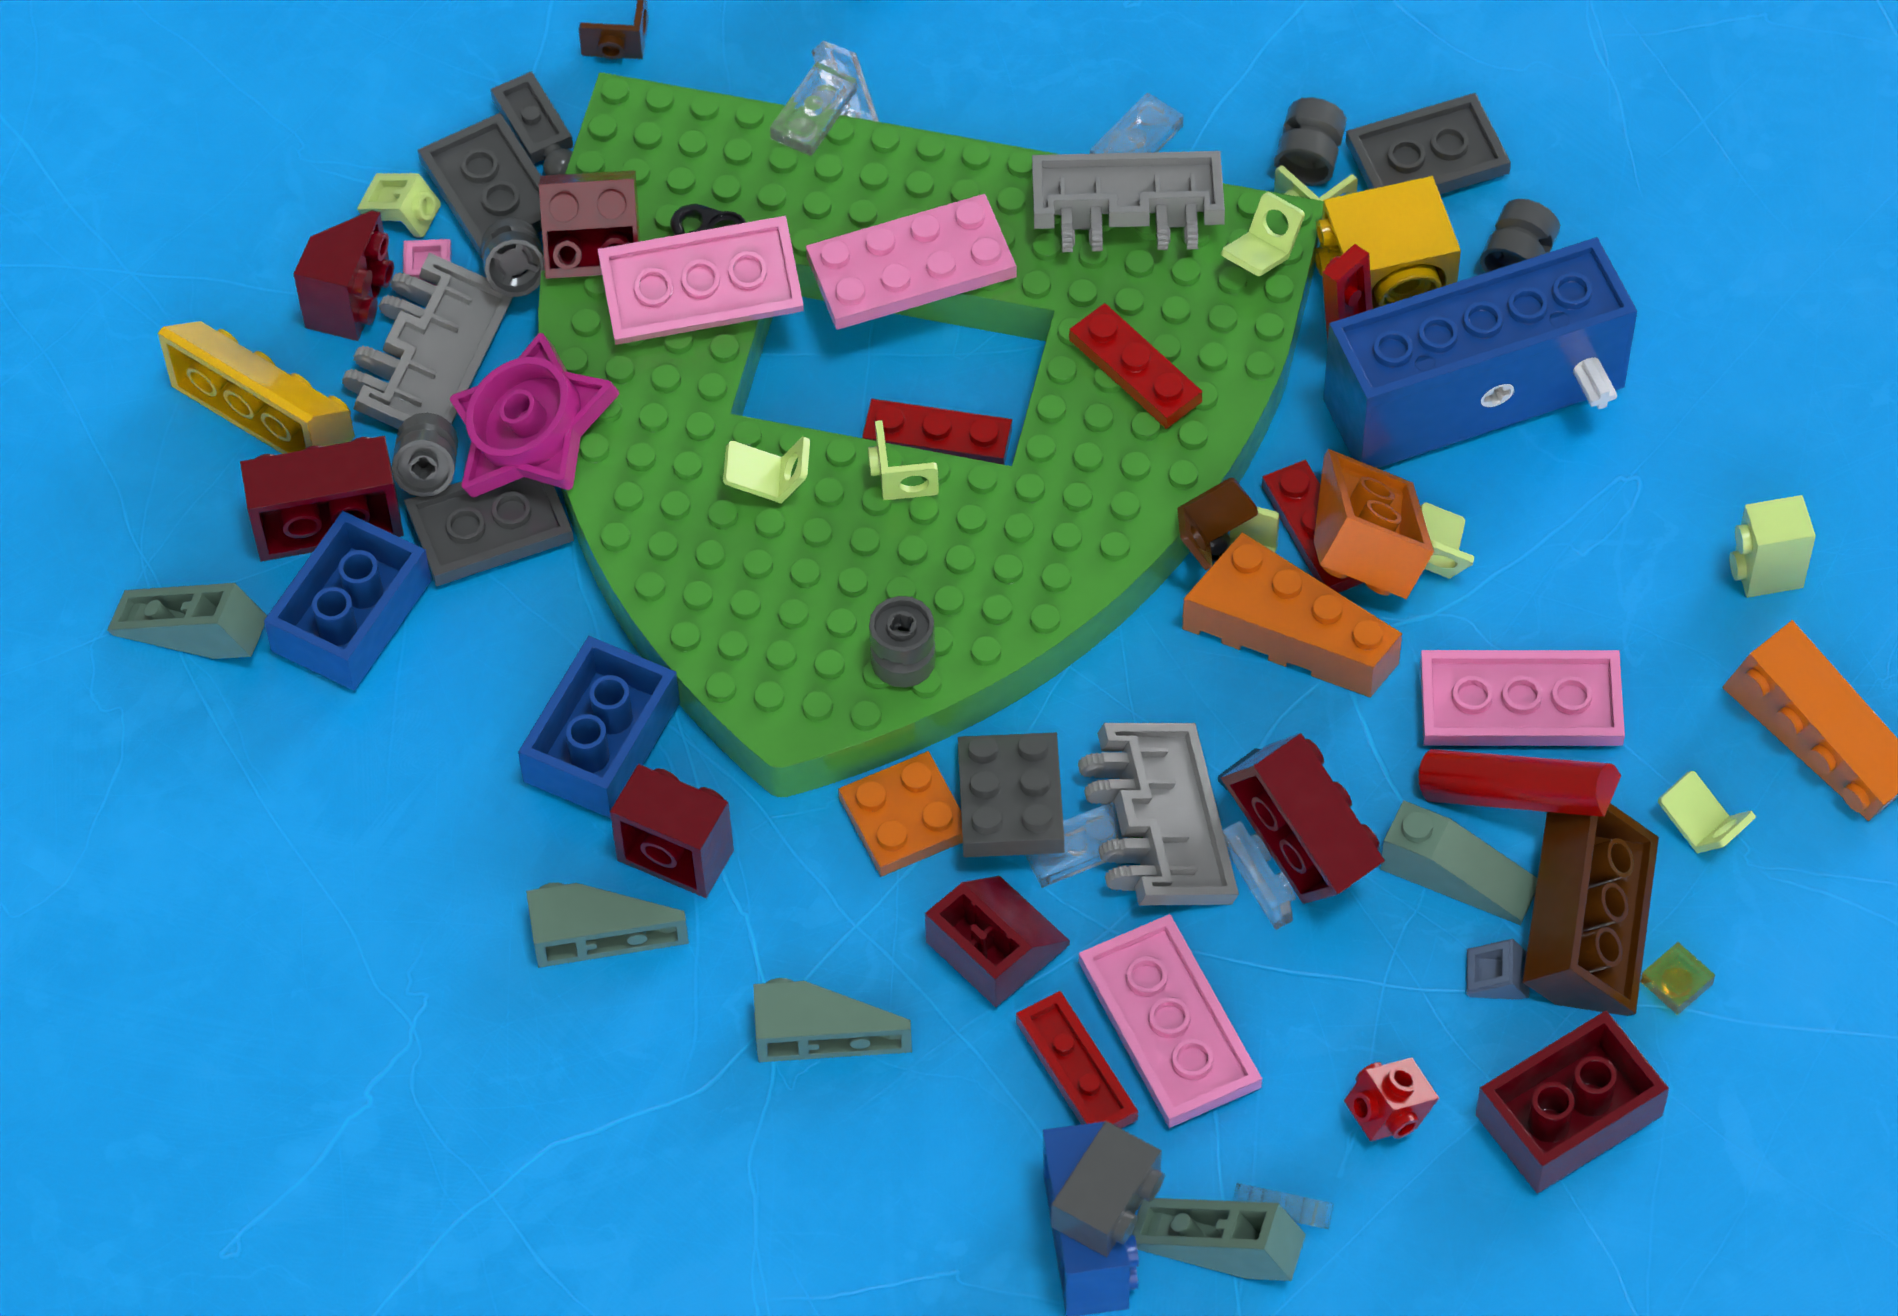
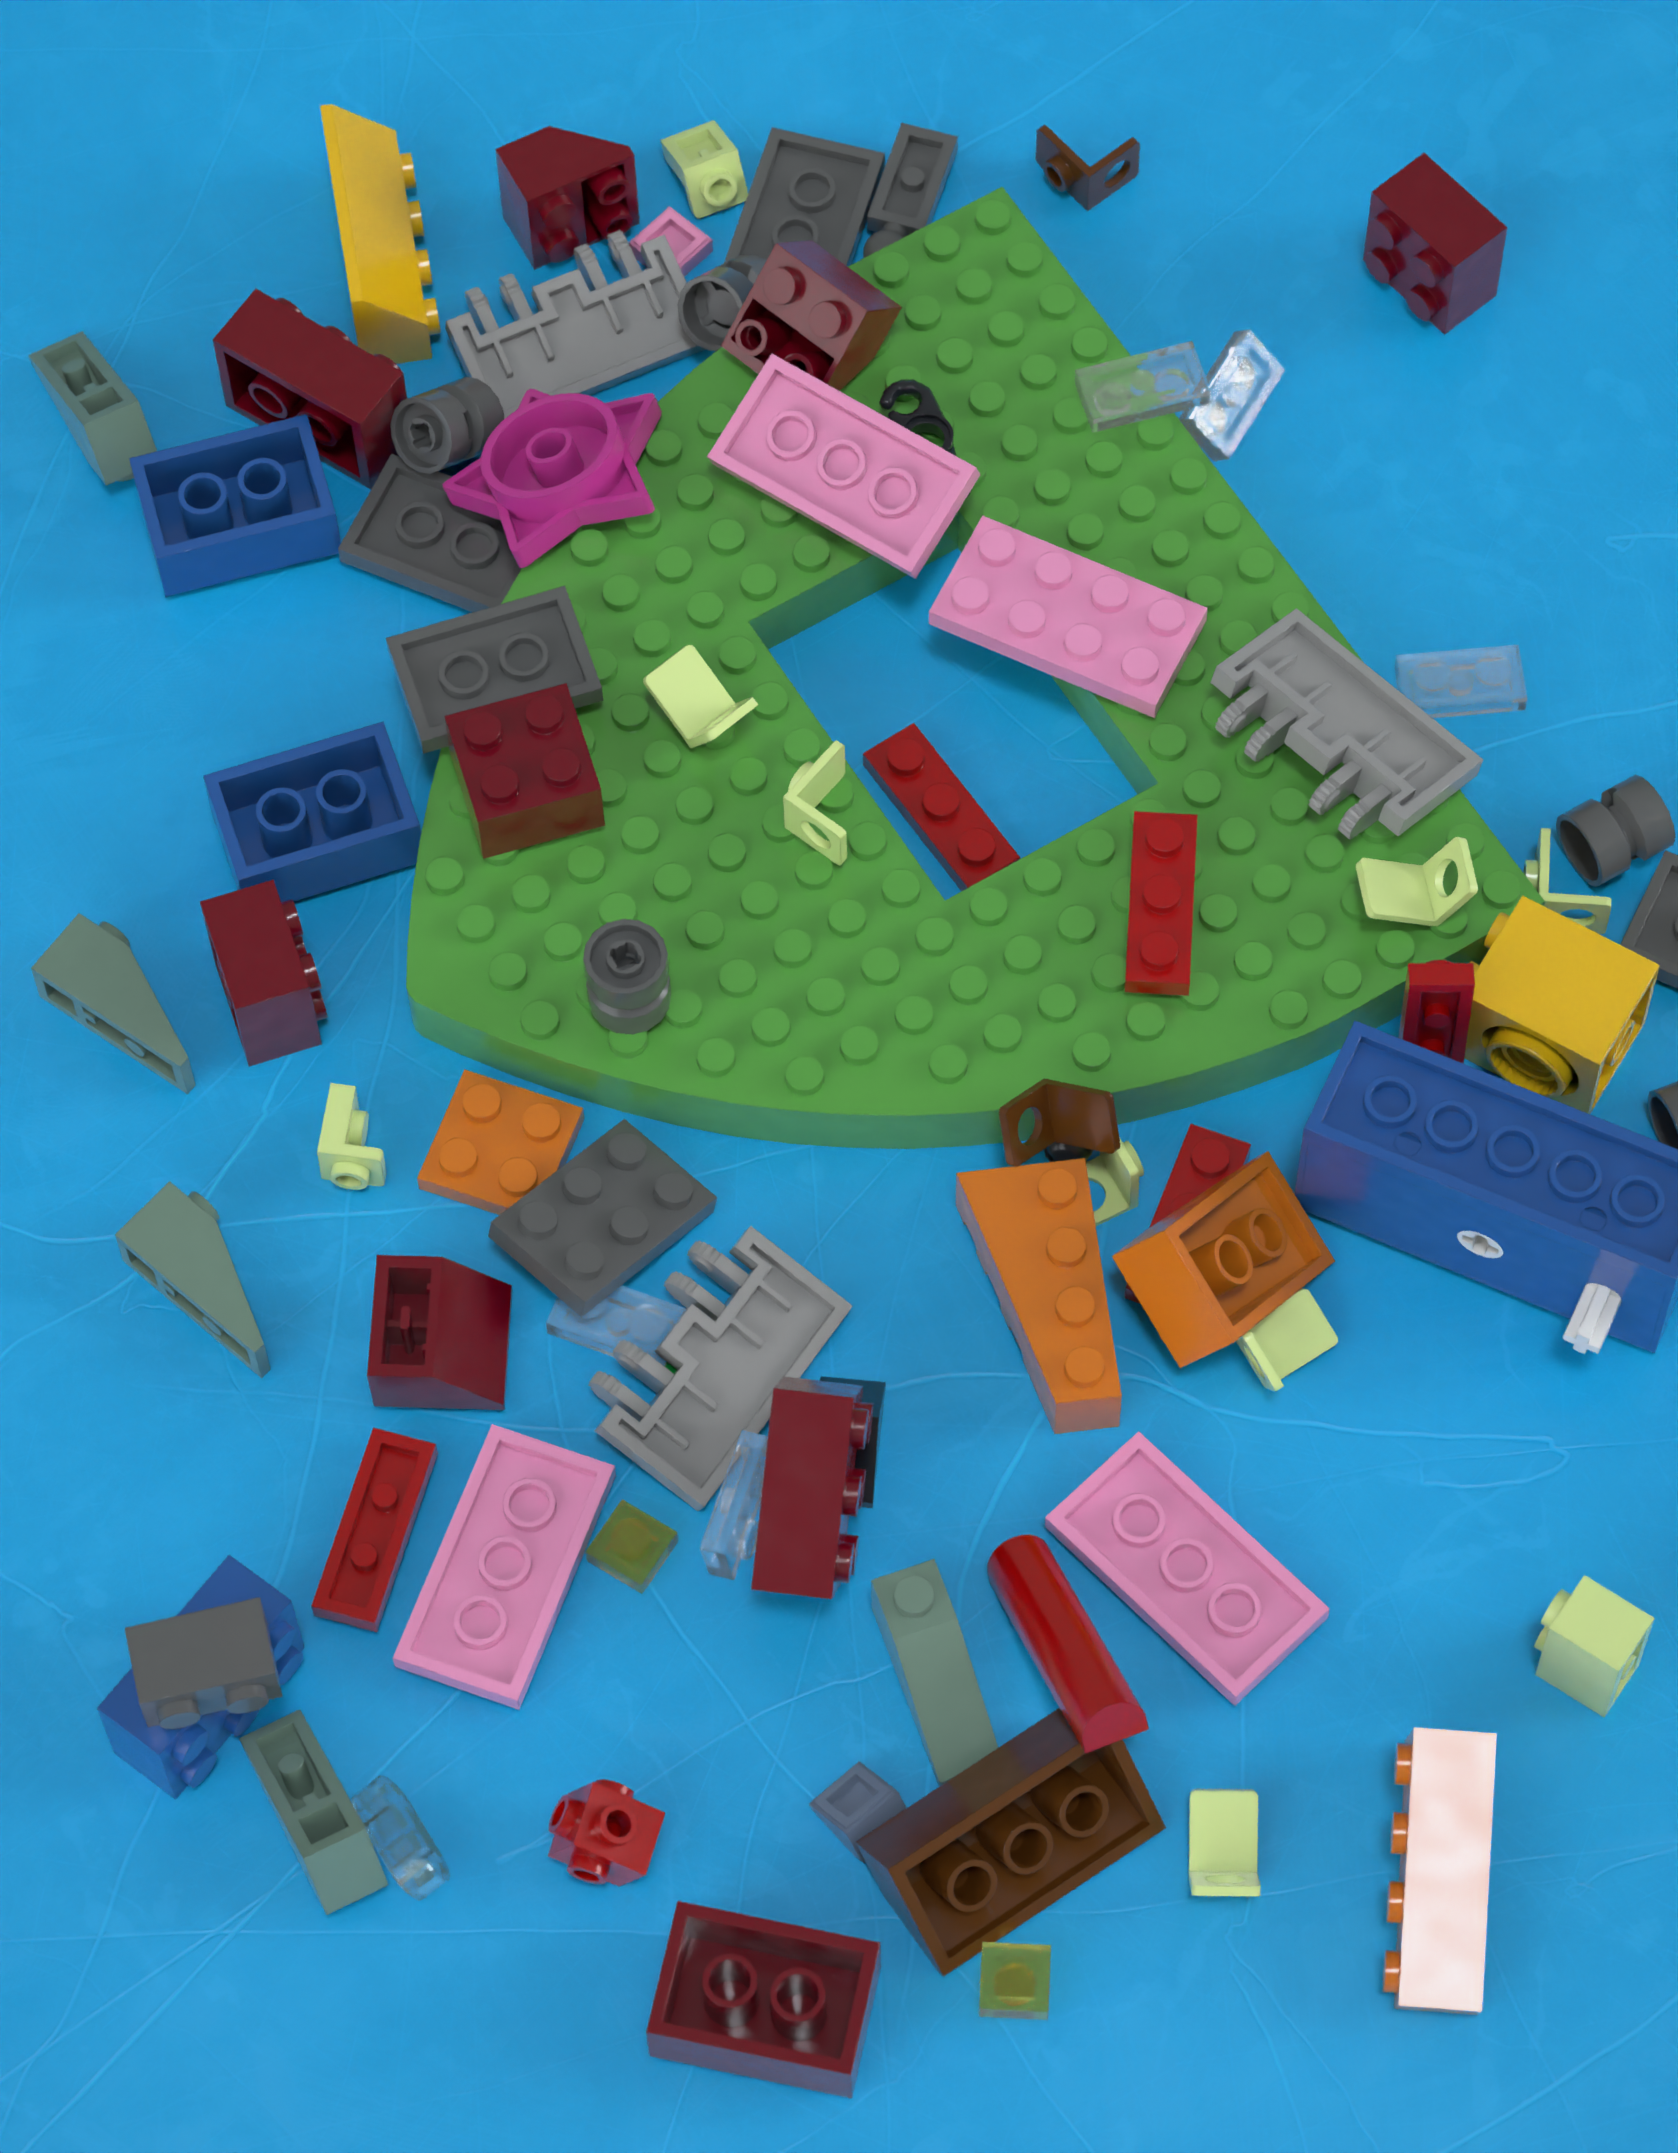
camera: 45 degrees right, 5 degrees up
(626, 550) = (491, 659): none -> dark grey plate
(713, 586) = (525, 770): none -> dark red brick
(816, 886) = (342, 1143): none -> yellowish green bracket
(1222, 950) = (632, 1546): none -> clear yellow plate

